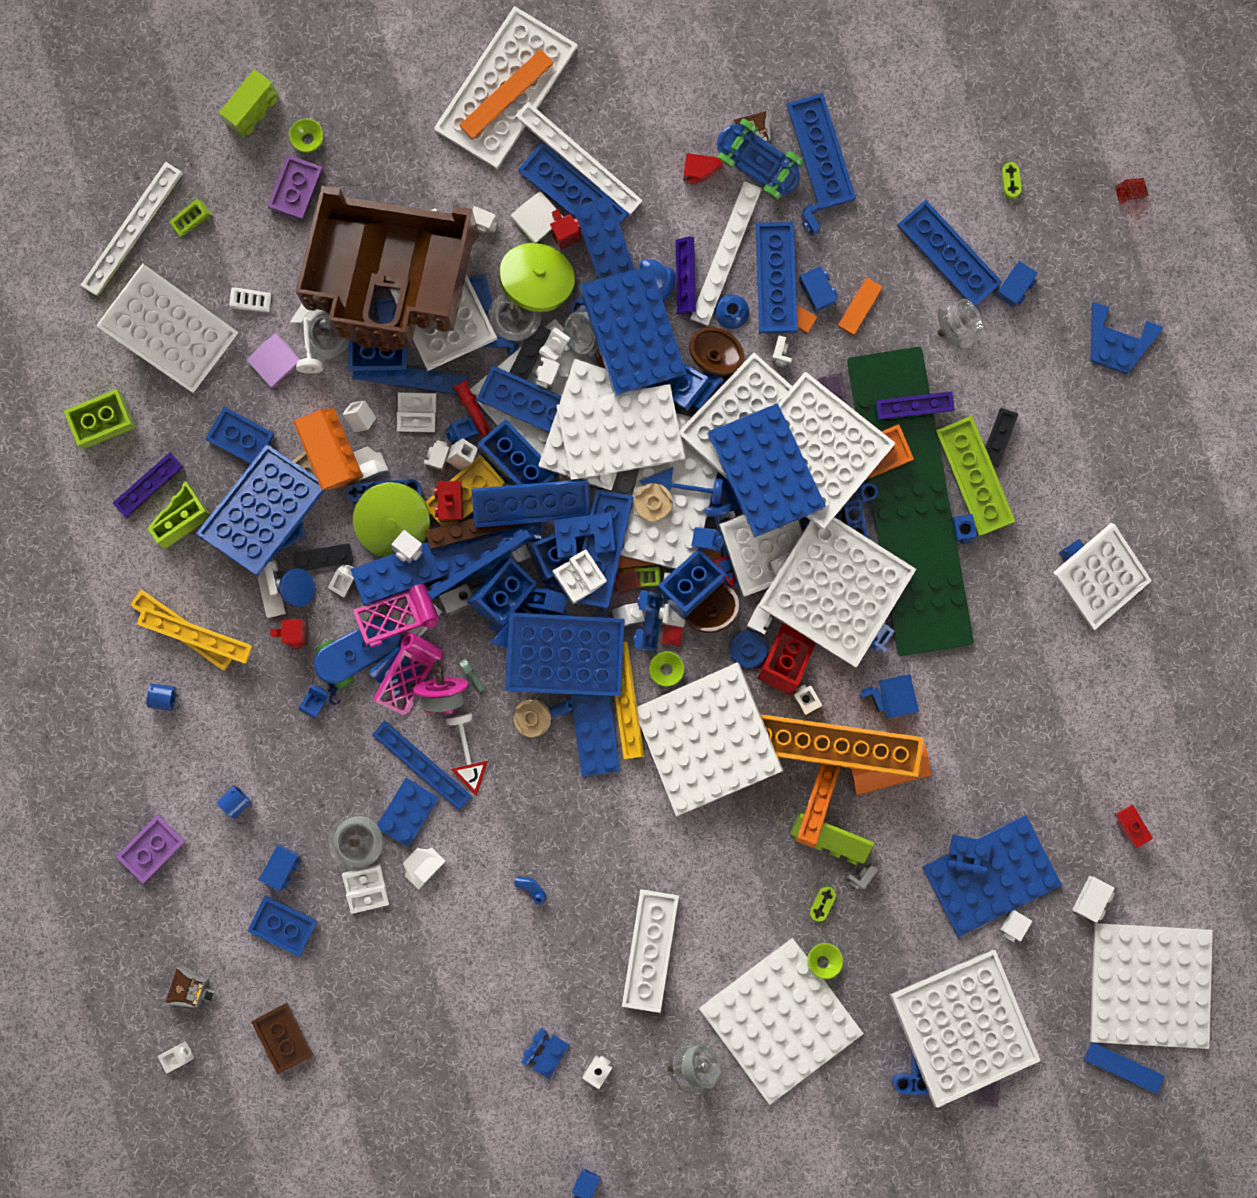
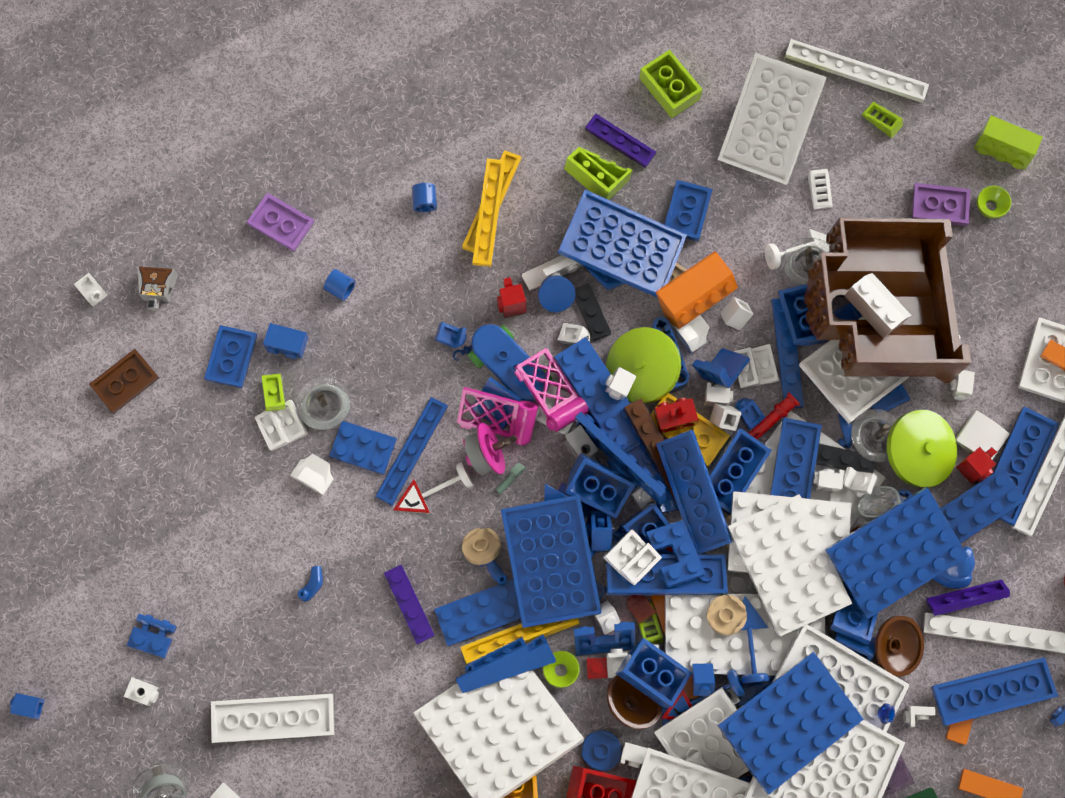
camera: 75 degrees right, 10 degrees down
(273, 360) = (769, 223): lavender slope -> none
(330, 890) = (273, 392): none -> lime plate
(390, 279) = (877, 305): none -> white slope
(412, 443) = (723, 368): none -> blue bracket
(571, 799) = (409, 604): none -> dark purple plate
(649, 718) = (506, 662): none -> blue wedge
(728, 320) = (936, 657): blue piece -> none
(776, 381) = (886, 713): none -> clear blue plate
(818, 289) = (995, 739): blue brick -> none

